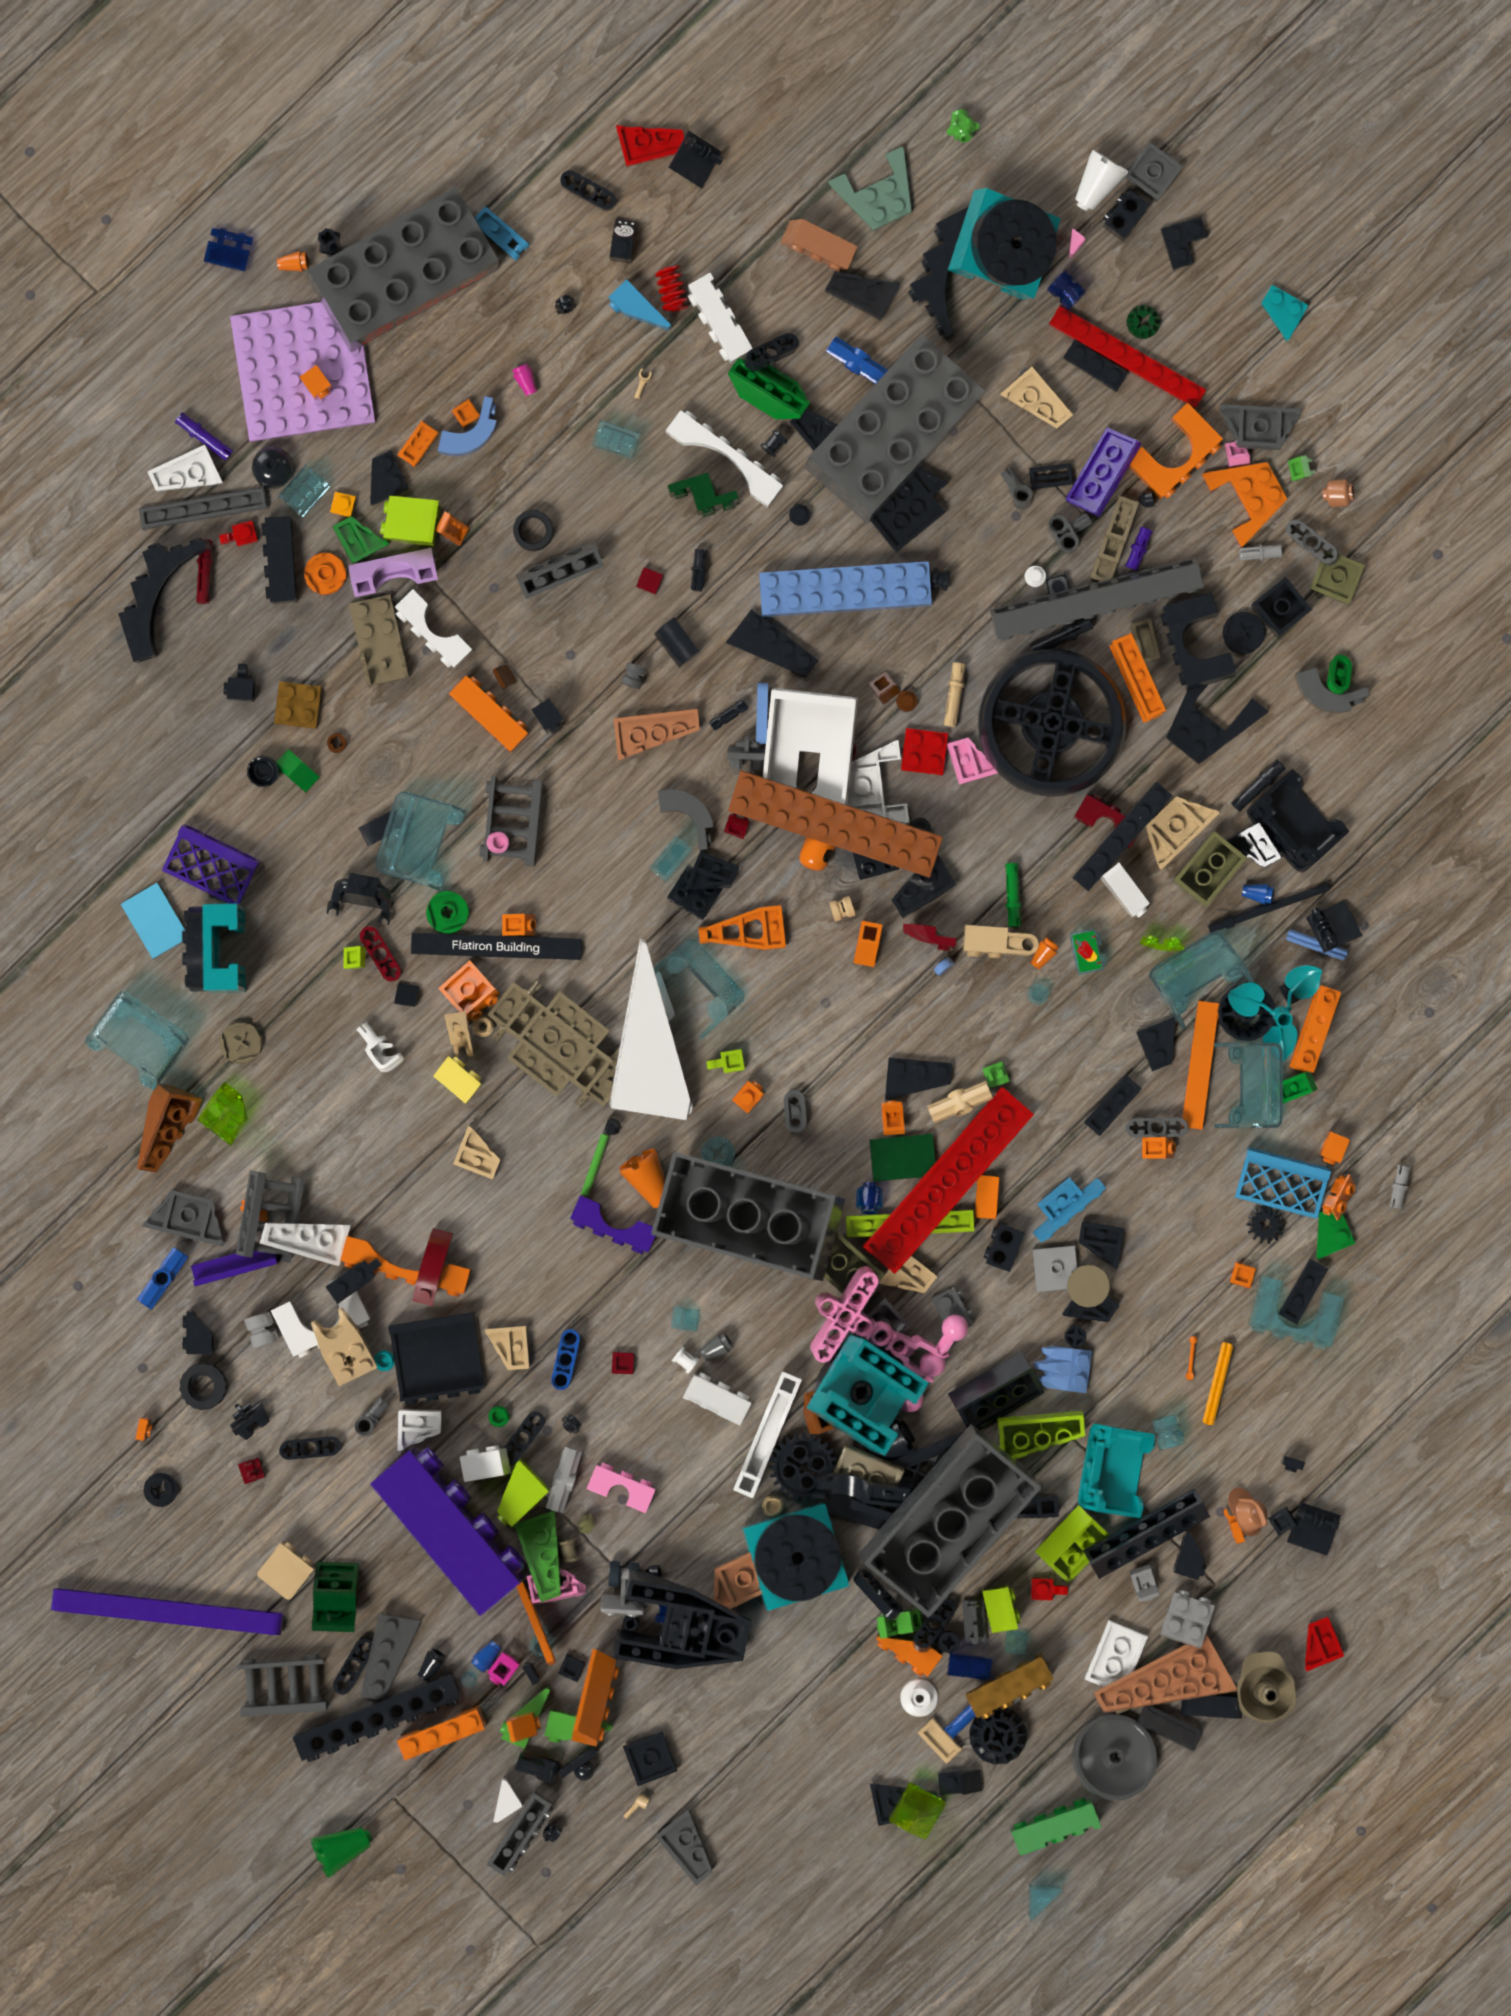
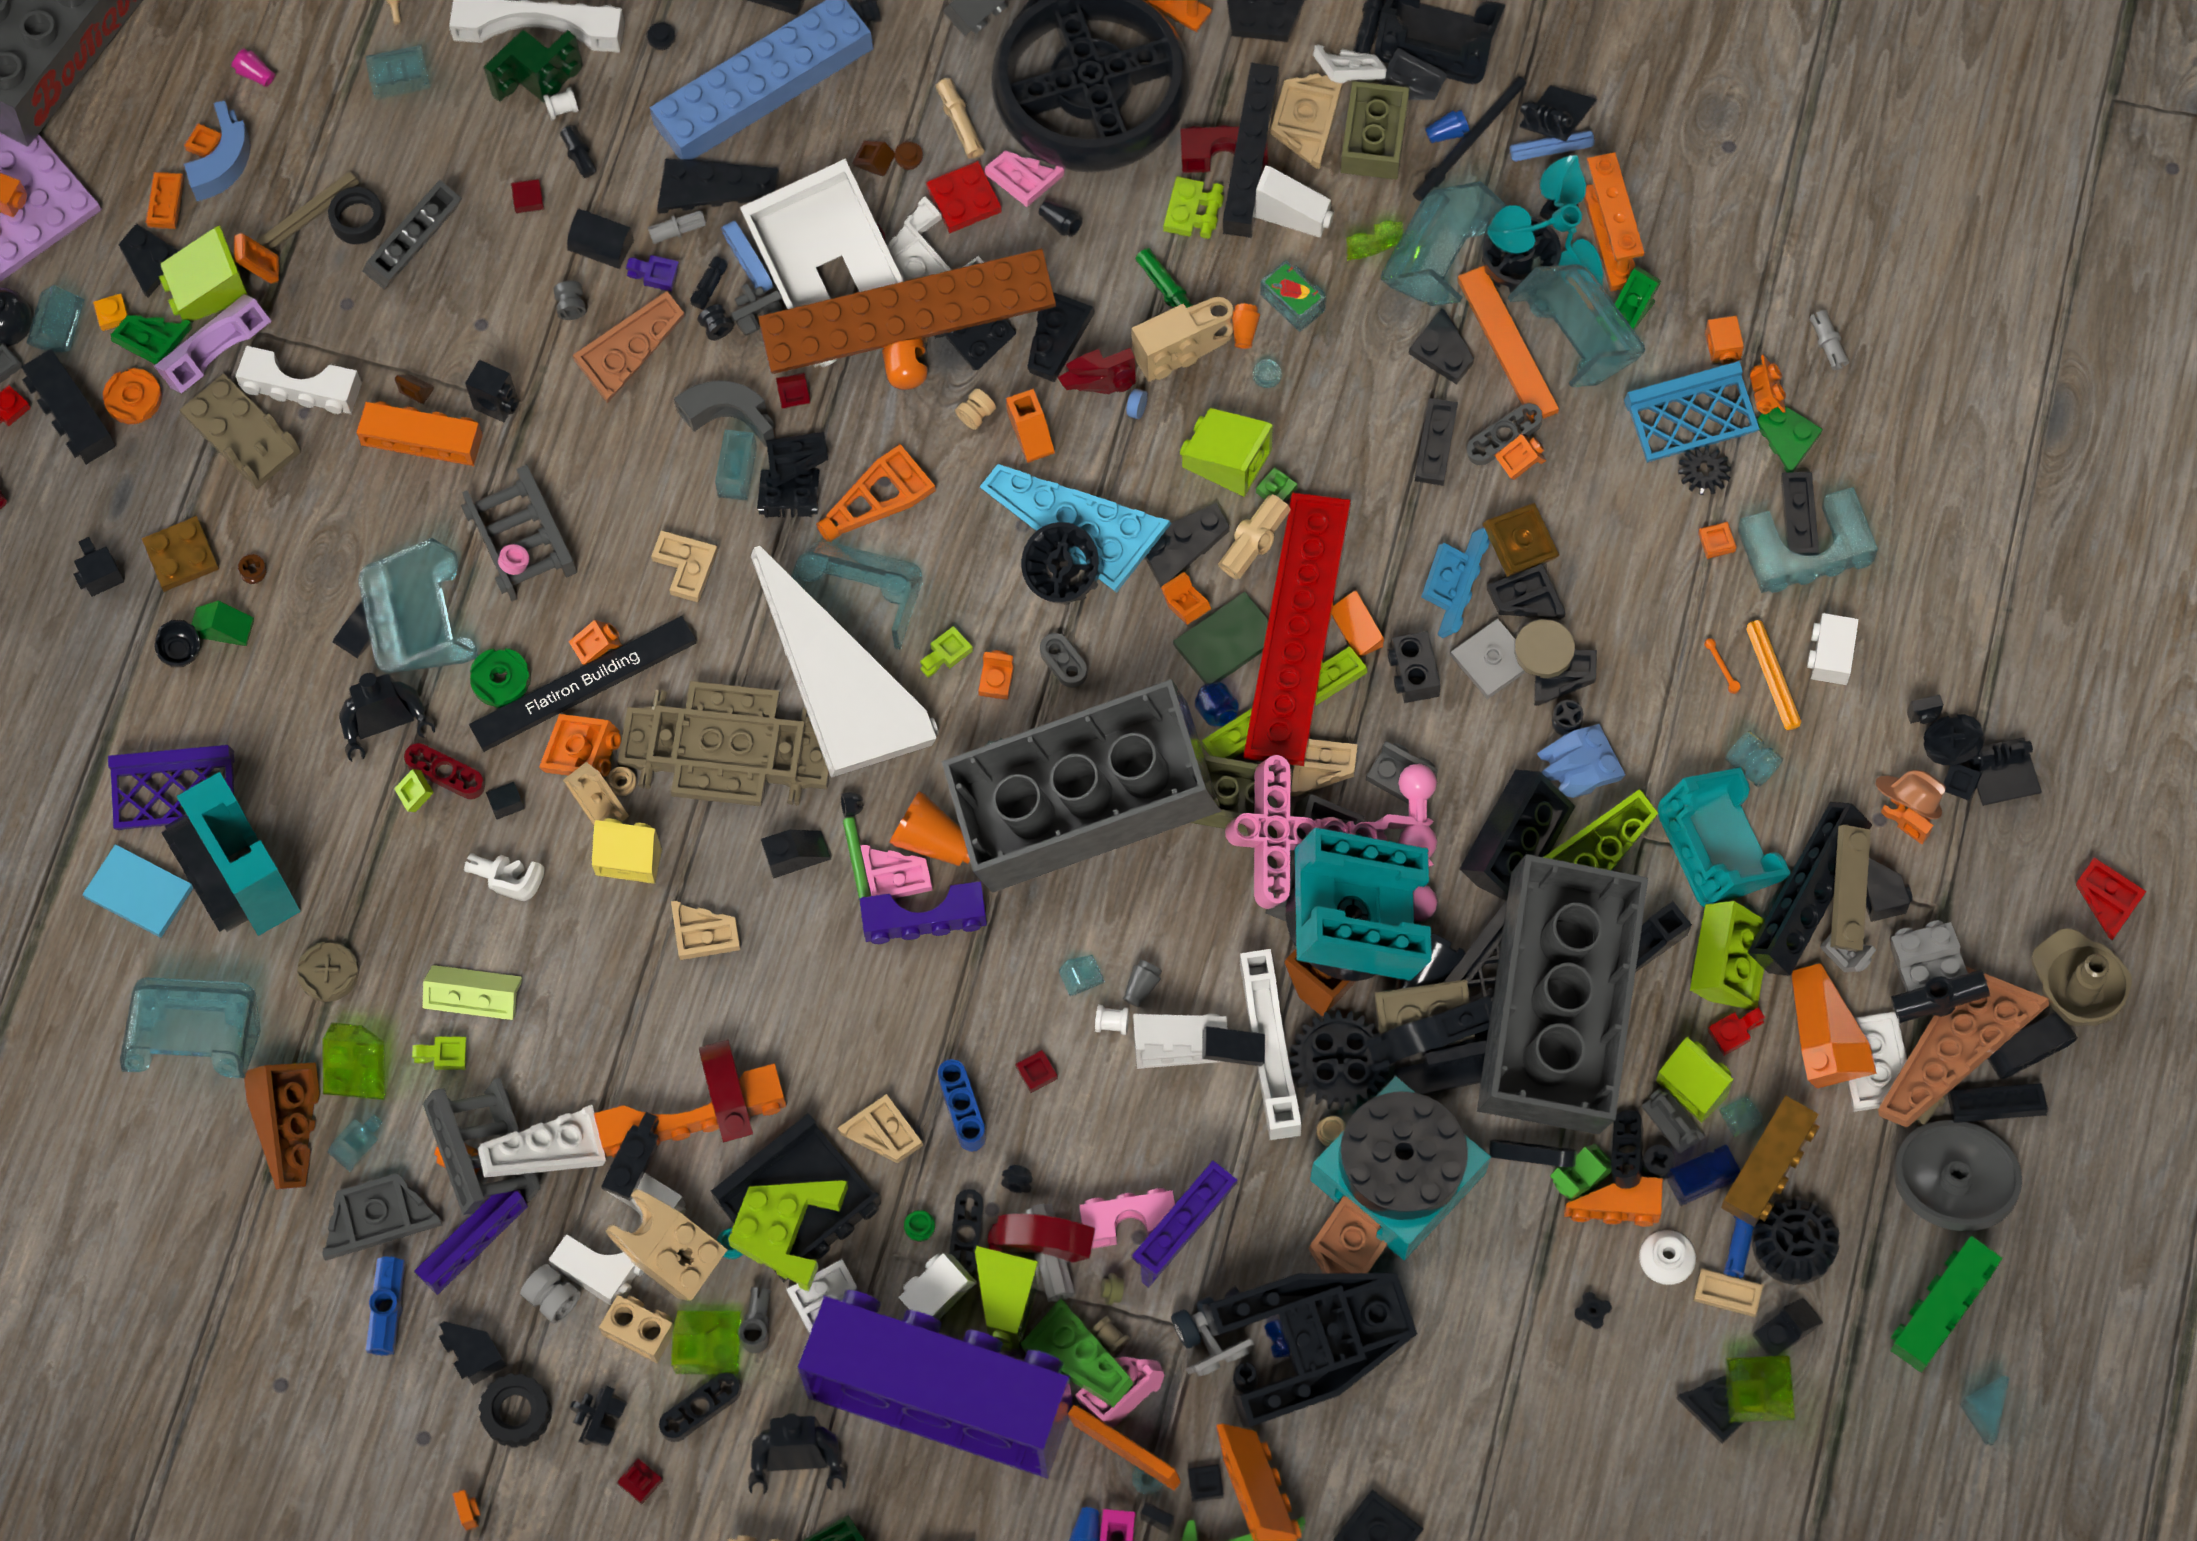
camera: 30 degrees left, 20 degrees down
(197, 1167) = (355, 1142): none -> clear light blue brick
(282, 1141) = (447, 1053): none -> lime plate
(295, 1383) = (633, 1334): none -> tan brick
(319, 1109) = (471, 992): none -> yellowish green panel
(335, 1412) = (706, 1342): none -> clear neon green slope
(350, 1507) = (795, 1444): none -> black torso
(412, 1366) = (772, 1220): none -> lime wing
(500, 508) = (306, 213): none -> dark tan axle
(560, 1473) = (1041, 1235): none -> dark red arch
(561, 1137) = (794, 851): none -> black slope
(608, 907) = (691, 558): none -> tan plate
(611, 1188) = (895, 873): none -> bright pink wing
(648, 1518) = (1183, 1221): none -> dark purple fence
(700, 689) = (657, 272): none -> dark purple plate
(707, 527) = (561, 103): none -> white bush
(715, 748) = (715, 322): none -> black wheel
(730, 663) = (675, 227): none -> light grey axle
(743, 1425) = (1233, 1046): none -> black tile
(816, 1054) = (1042, 555): none -> black gear
(848, 1702) = (1595, 1319): none -> black plate
(862, 1036) = (1119, 531): none -> medium azure wing
(975, 807) = (1061, 218): none -> black cone
(978, 1033) = (1228, 449): none -> lime slope
(1058, 844) = (1184, 206): none -> lime plate
(1098, 1627) = (1829, 1035): none -> orange wedge
(1121, 1205) = (1520, 539): none -> pearl gold plate
(1167, 1551) = (1850, 888): none -> dark tan plate
(1190, 1652) = (1926, 1000): none -> black piece
(1221, 813) = (1350, 65): none -> white wing
(1263, 1391) = (1834, 648): none -> white brick
(1295, 1493) = (1953, 739): none -> black tile

